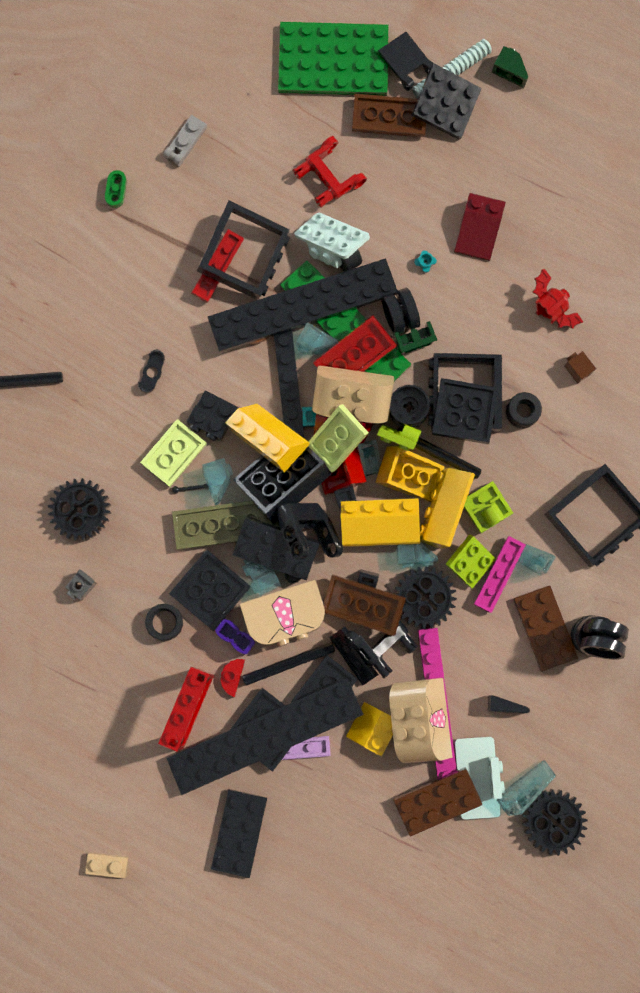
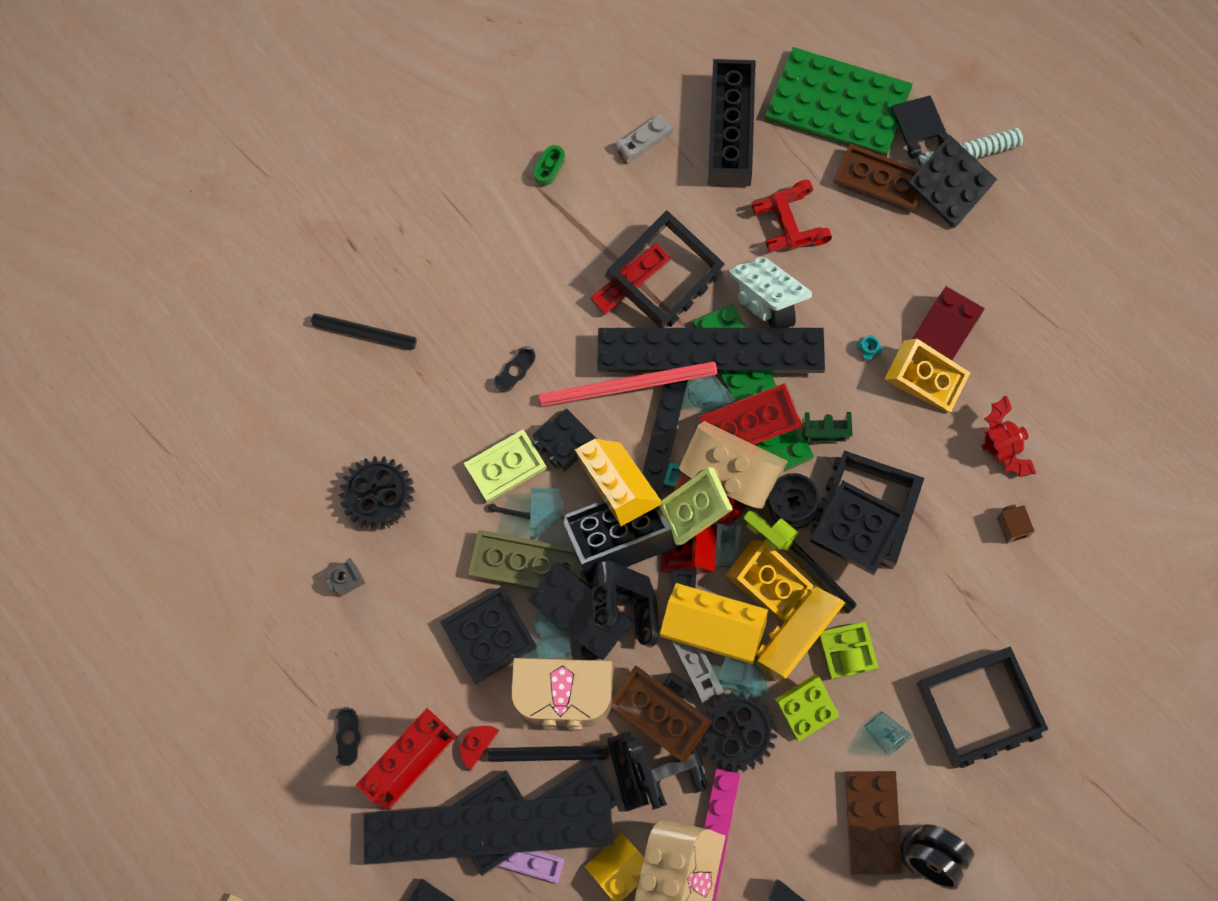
camera: 30 degrees right, 10 degrees down
(126, 693) = (347, 721): none -> black piece
(149, 622) = (413, 637): black tyre -> none
(230, 633) = (498, 701): dark purple brick -> none
(247, 354) = (628, 383): none -> coral axle
(253, 104) = (732, 122): none -> black brick
(380, 561) = (698, 670): none -> light grey plate
(400, 311) = (821, 392): black wheel -> none
(477, 270) = (927, 375): none -> yellow slope
(499, 574) = (837, 736): dark pink plate -> none
(510, 67) = (1038, 167): dark green slope -> none
(528, 399) = (934, 537): black tyre -> none

